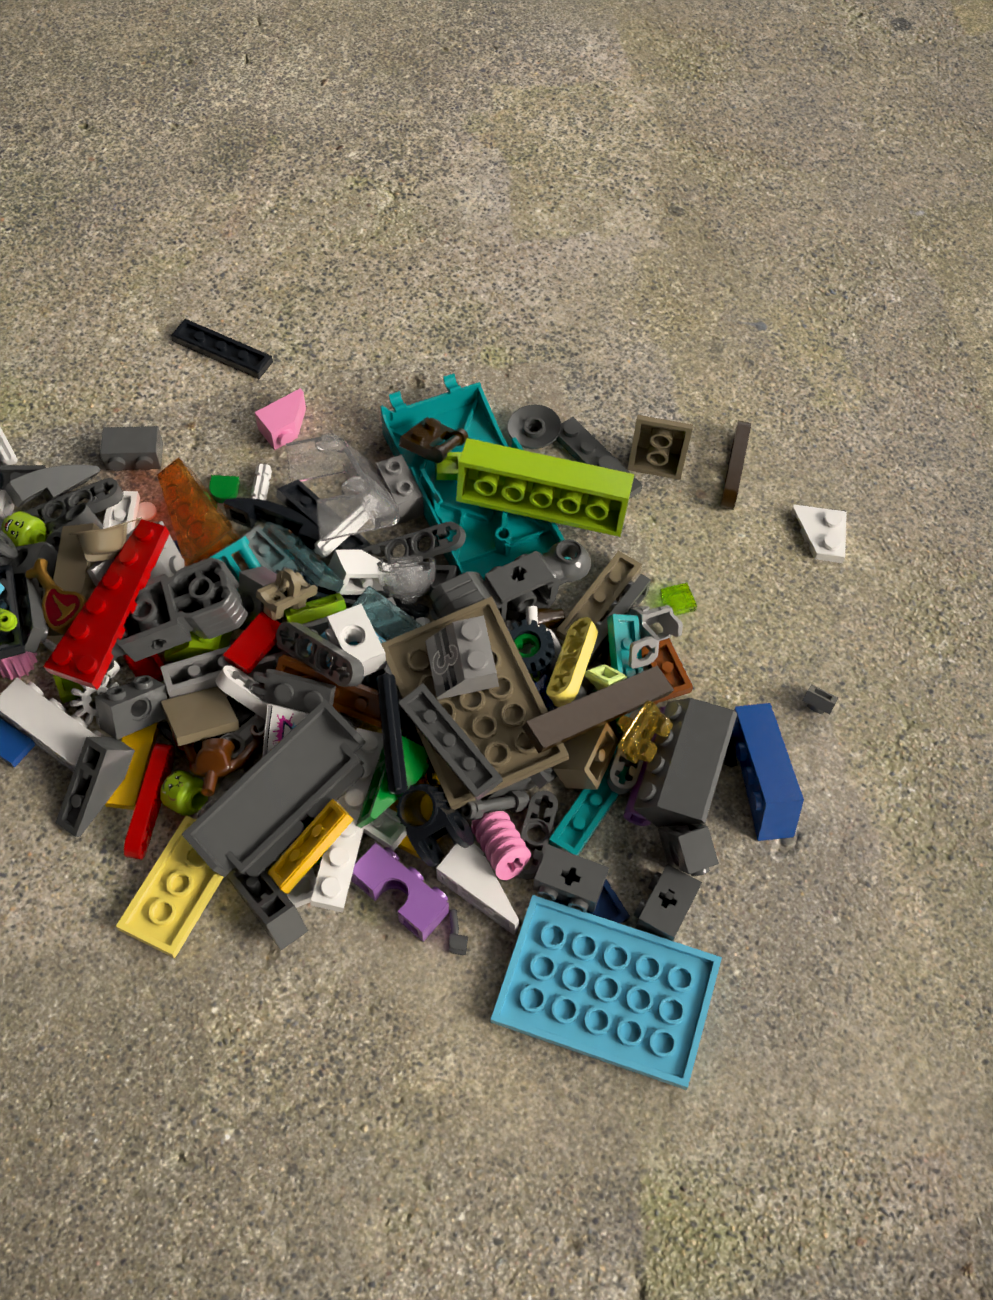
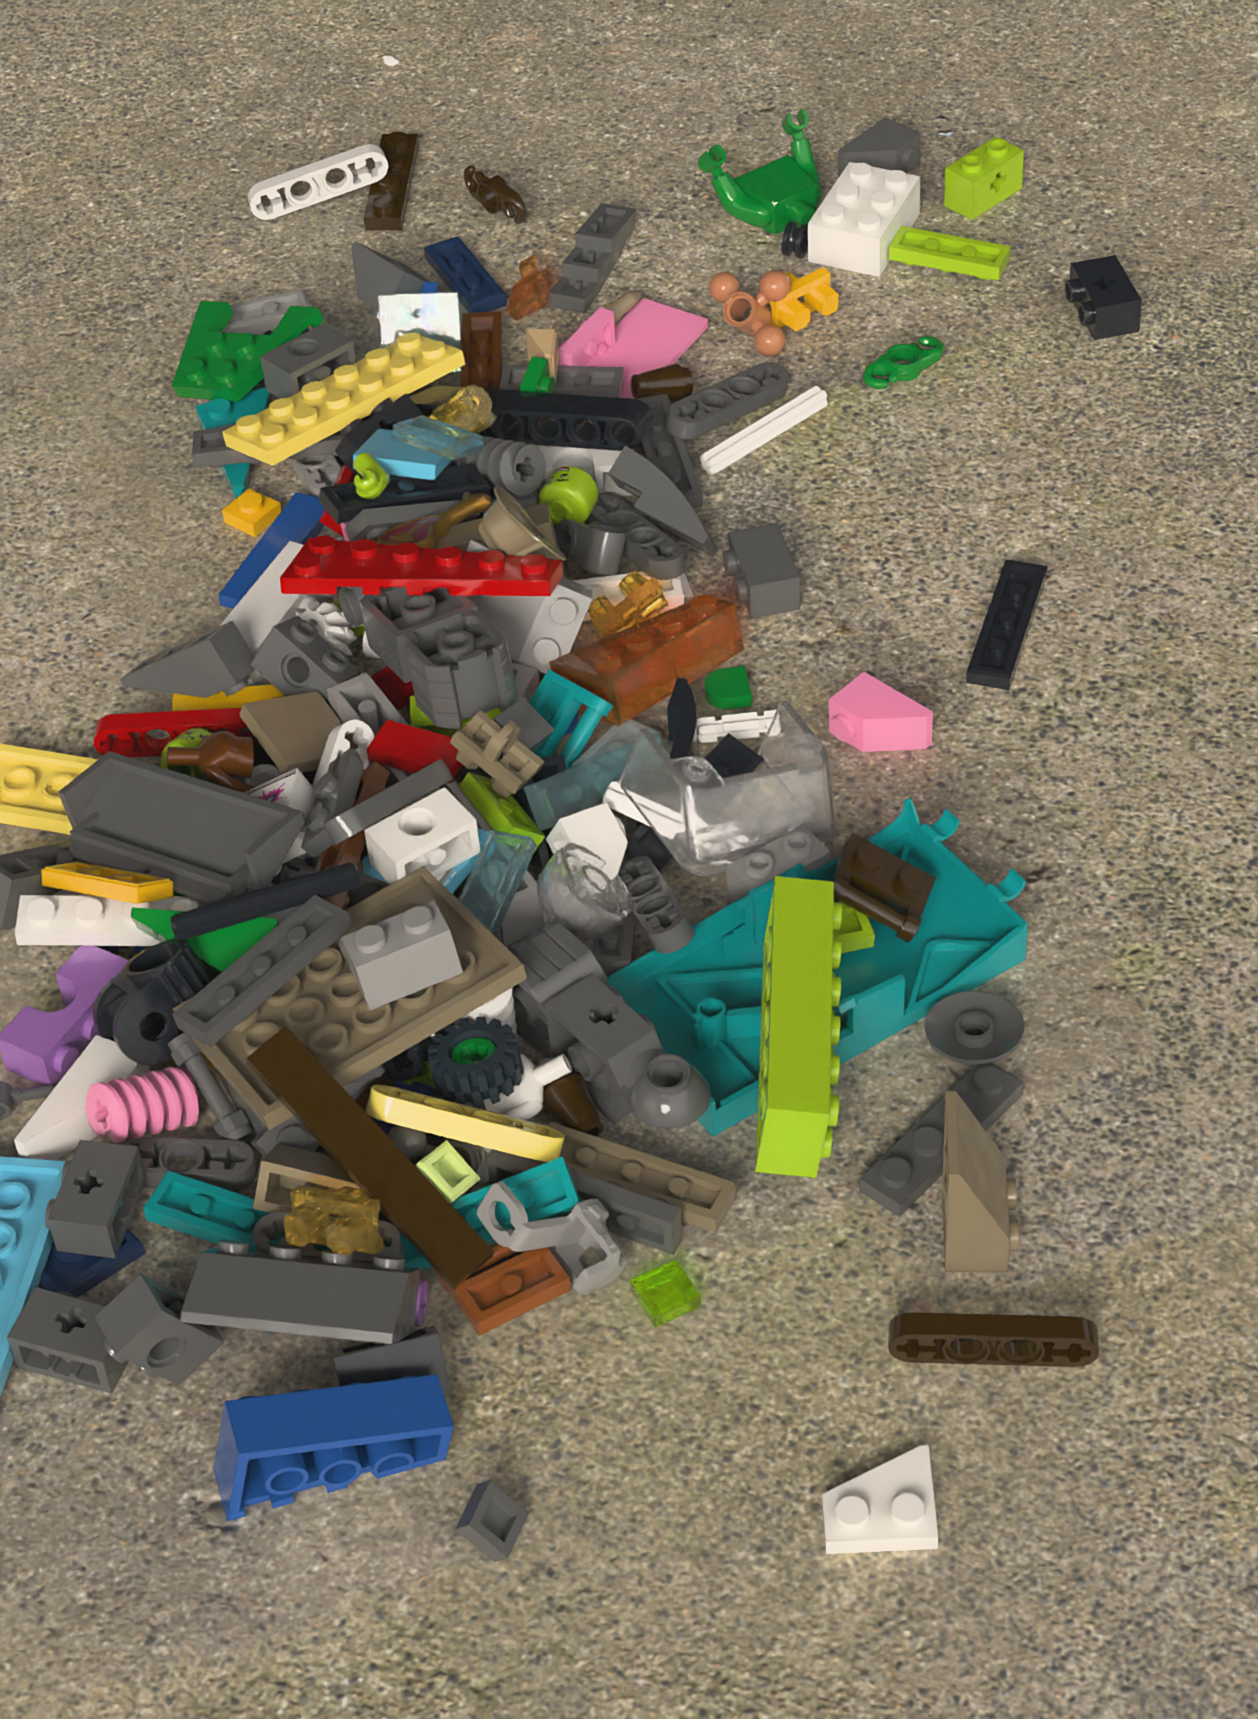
camera: 85 degrees right, 15 degrees down
(142, 508) = (641, 602): none -> clear yellow hips

